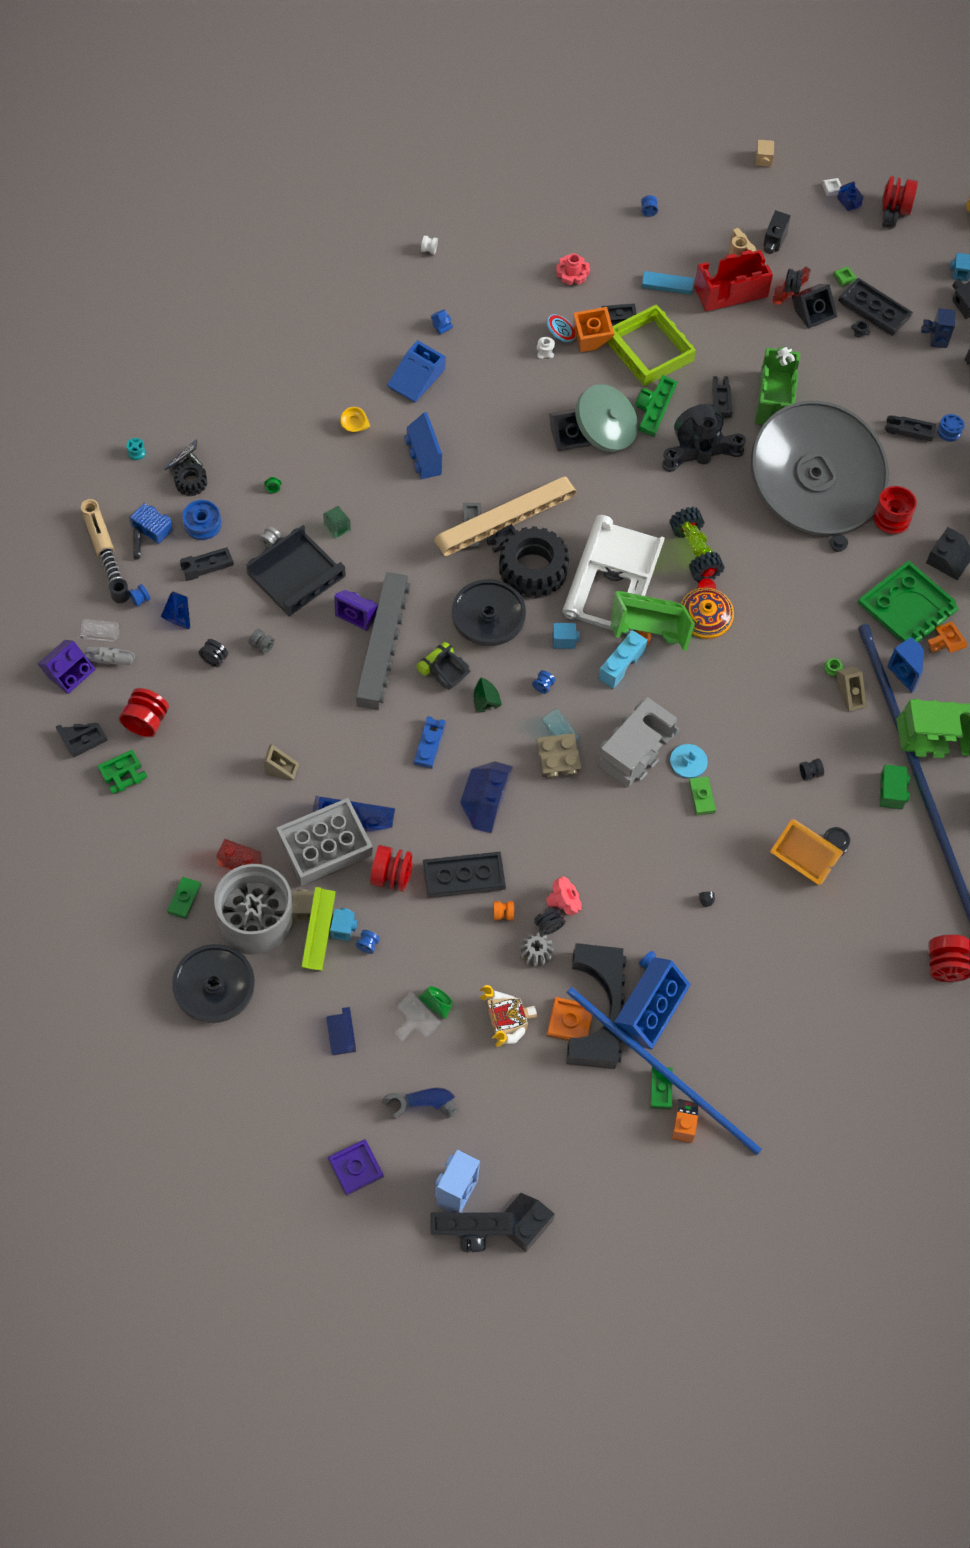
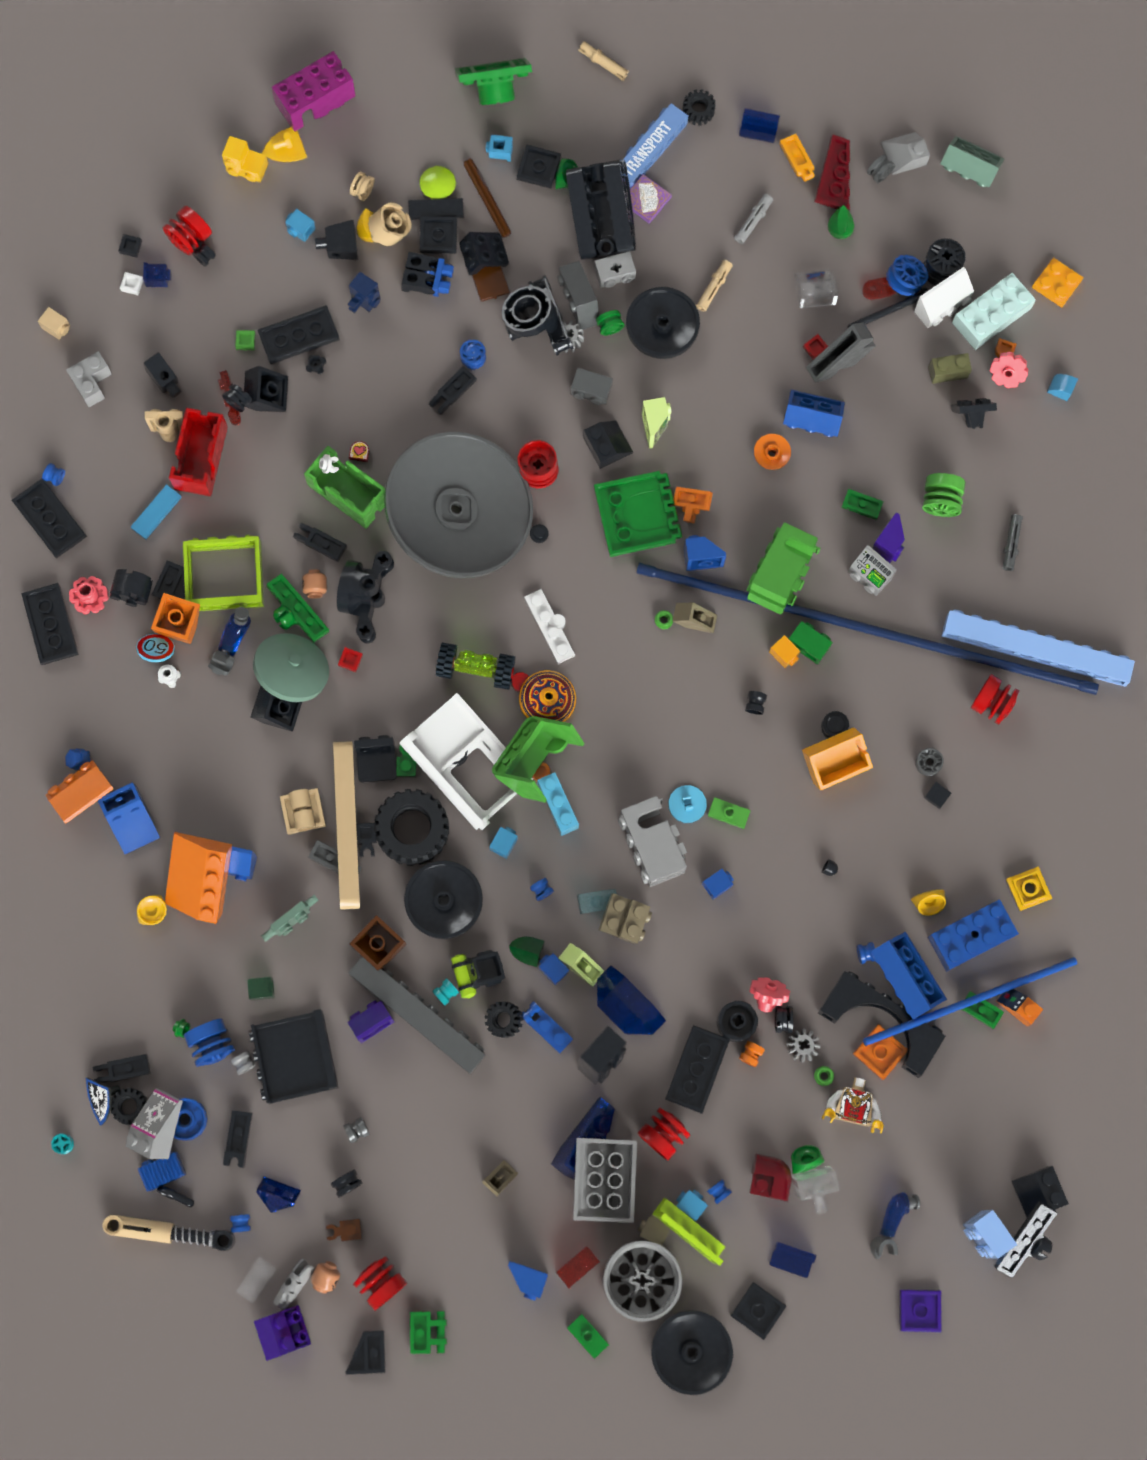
camera: 60 degrees left, 15 degrees up
(128, 674) = (325, 1277): none -> nougat head
(175, 675) = (348, 1230): none -> reddish brown plate
(181, 495) = (155, 1126): none -> light grey slope
(205, 823) = (528, 1280): none -> blue slope
(218, 461) = (124, 1068): none -> black hinge
(272, 503) = (209, 1042): none -> blue wheel
(280, 1026) = (758, 1310): none -> black tile
(399, 434) = (198, 876): none -> orange slope
(402, 976) = (771, 1178): none -> dark red brick
(405, 511) = (284, 924): none -> sand green plate
(413, 651) = (445, 991): none -> teal wheel
(413, 696) = (492, 1019): none -> black tyre
(417, 327) = (78, 791): none -> orange slope
(423, 582) = (378, 943): none -> reddish brown slope
(425, 760) = (602, 1055): none -> black brick
(482, 722) = (553, 968): none -> blue brick
(498, 484) = (302, 810): none -> tan plate
(498, 741) = (581, 964): none -> yellowish green slope
(520, 976) = (830, 1076): none -> bright green plate
(533, 256) = (49, 624): none -> black plate
(534, 880) = (747, 1016): none -> black brick
(574, 513) = (376, 759): none -> black bracket
(579, 539) = (405, 765): none -> green plate
(596, 289) = (131, 587): none -> black brick
(602, 374) = (235, 629): none -> piece
(614, 220) = (49, 518): none -> black tile
(635, 813) = (718, 883): none -> blue brick
(641, 460) = (350, 659): none -> red plate
(682, 404) = (314, 584): none -> nougat head
(731, 996) = (930, 902): none -> yellow piece
(737, 1058) = (956, 945): none -> blue brick
(740, 190) = (87, 374): none -> light grey brick
(768, 587) = (550, 626): none -> white hinge
(797, 1088) = (1024, 899): none -> yellow piece
(813, 389) = (359, 451): none -> tile
(831, 958) = (937, 795): none -> black tile
(860, 171) = (130, 245): none -> black plate
(860, 929) = (936, 758): none -> dark grey wheel
(871, 771) = (785, 652): none -> light orange brick

